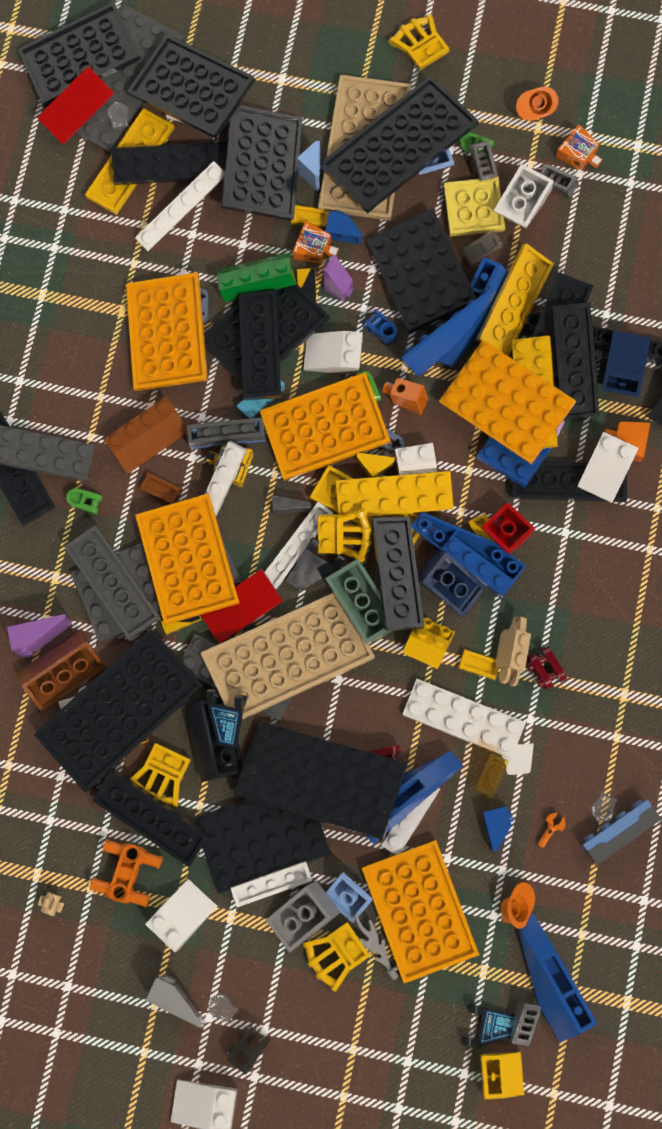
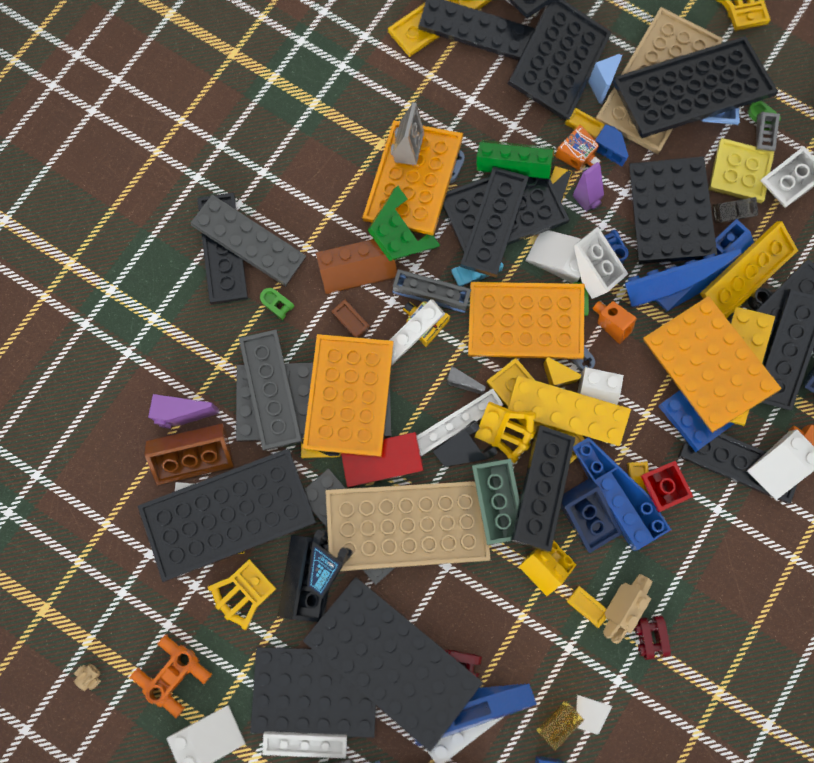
camera: 15 degrees right, 0 degrees up
(148, 297) = (408, 137): none -> light grey slope
(151, 817) = (216, 631): black plate -> none
(168, 392) = (393, 234): none -> green wing
(180, 206) = (470, 69): white plate -> none
(370, 348) = (598, 264): none -> white slope
(464, 718) = (554, 655): white plate -> none

